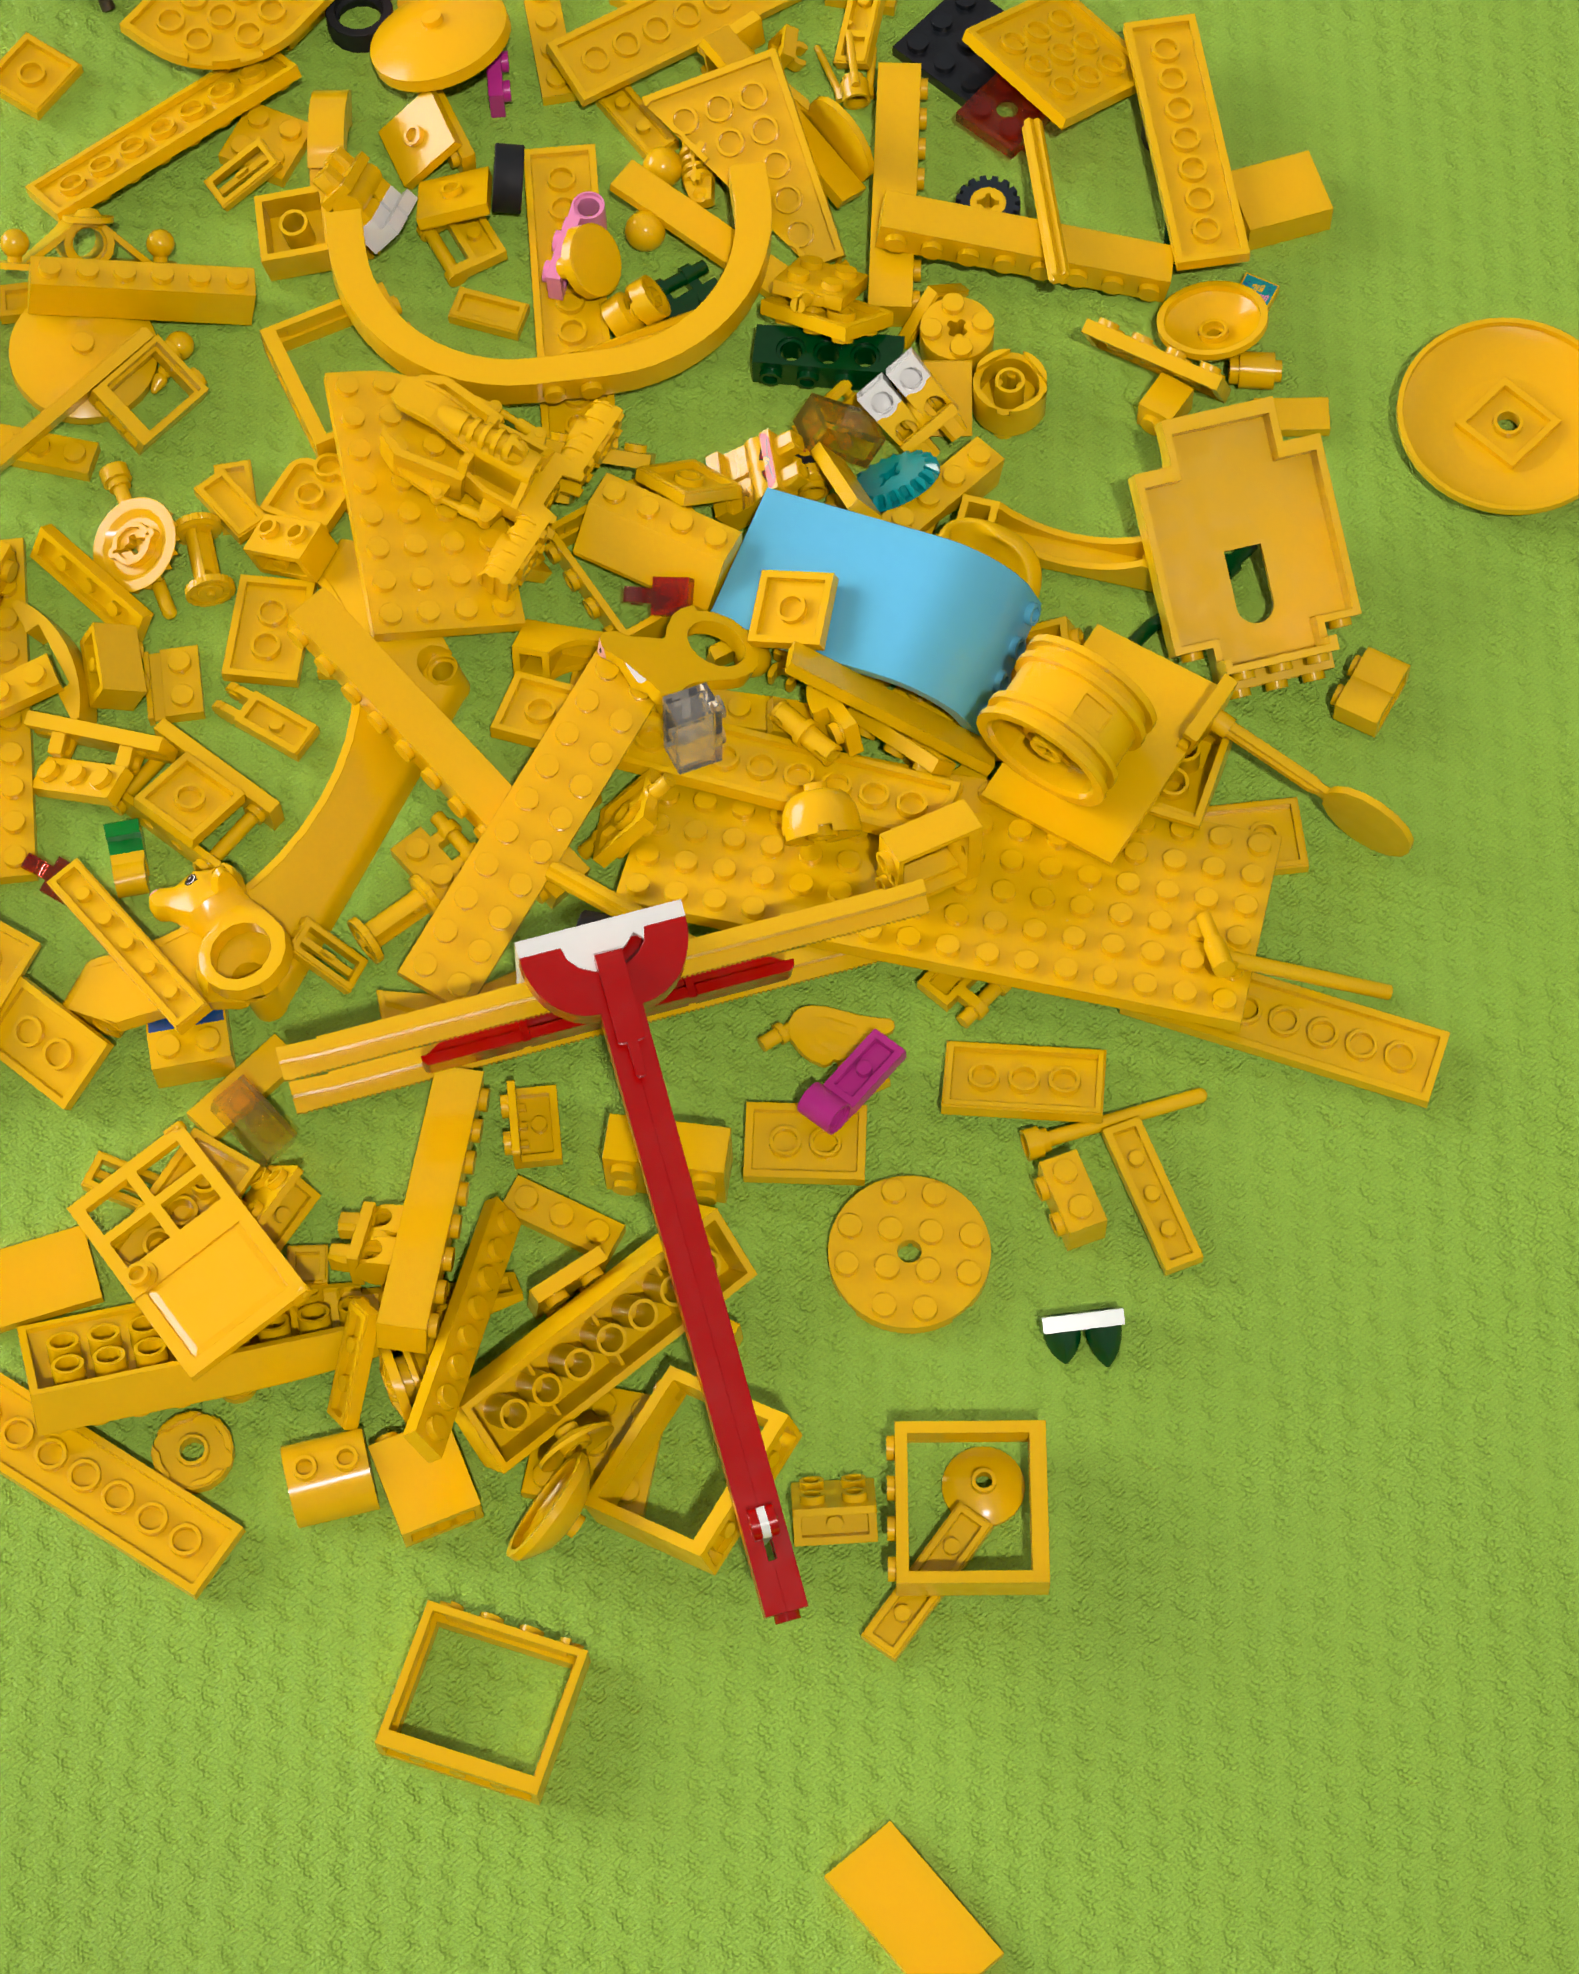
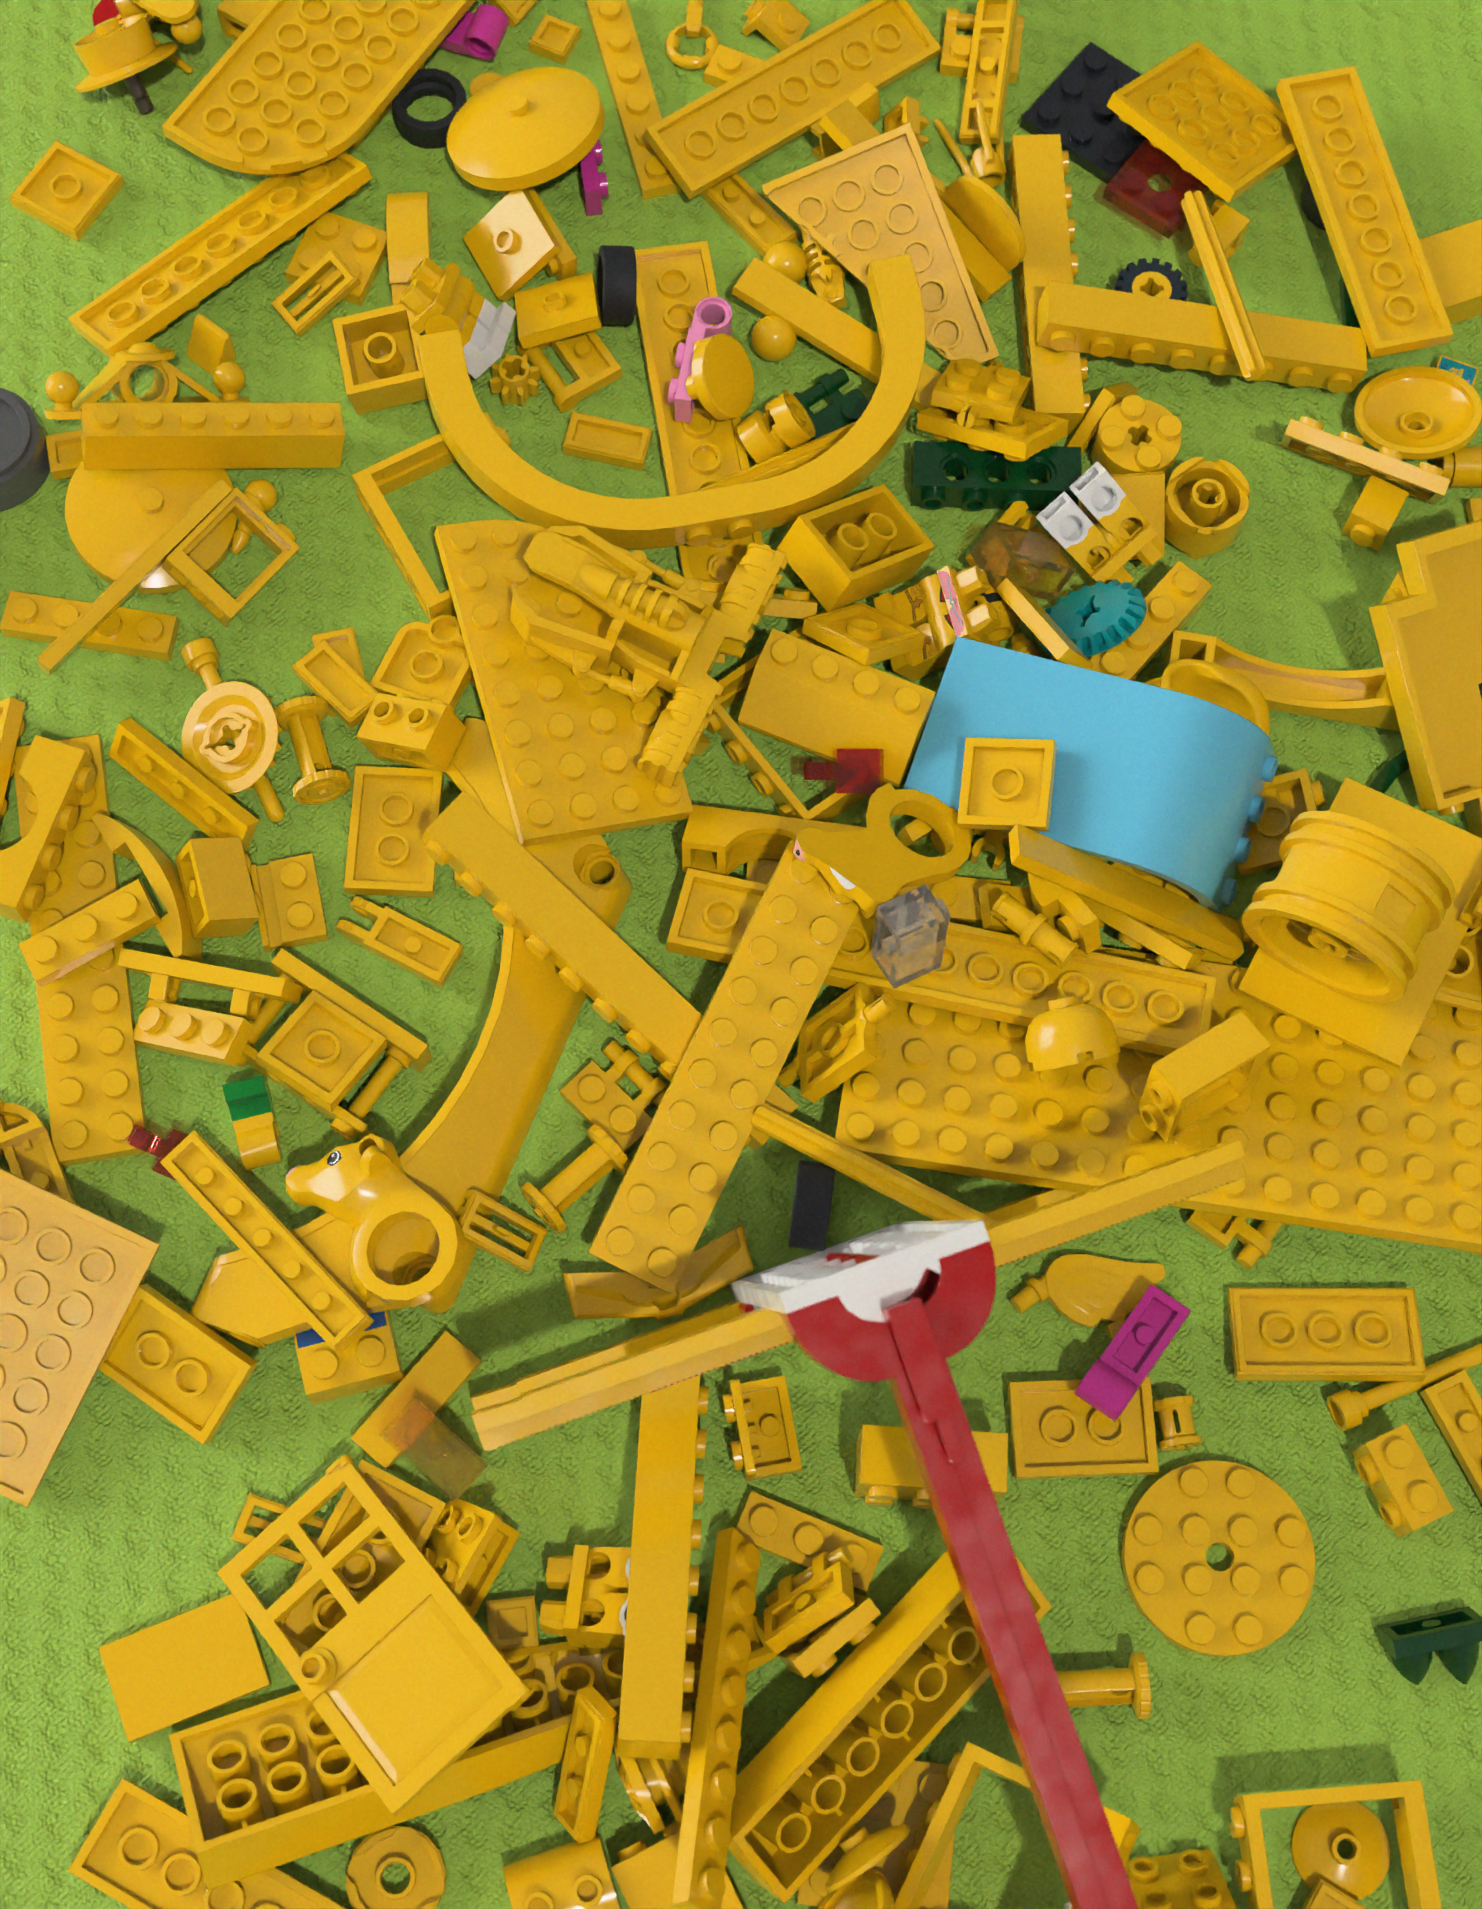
camera: 10 degrees left, 5 degrees up
(146, 214) = (209, 344): none -> yellow slope
(411, 256) = (515, 379): none -> yellow gear
(550, 1255) = (809, 1599): none -> yellow plate
(692, 411) = (855, 547): none -> yellow brick
(785, 1342) = (1110, 1686): none -> yellow hose
(886, 1144) = (1171, 1439): none -> yellow bush
(1064, 157) = (1230, 228): none -> yellow brick

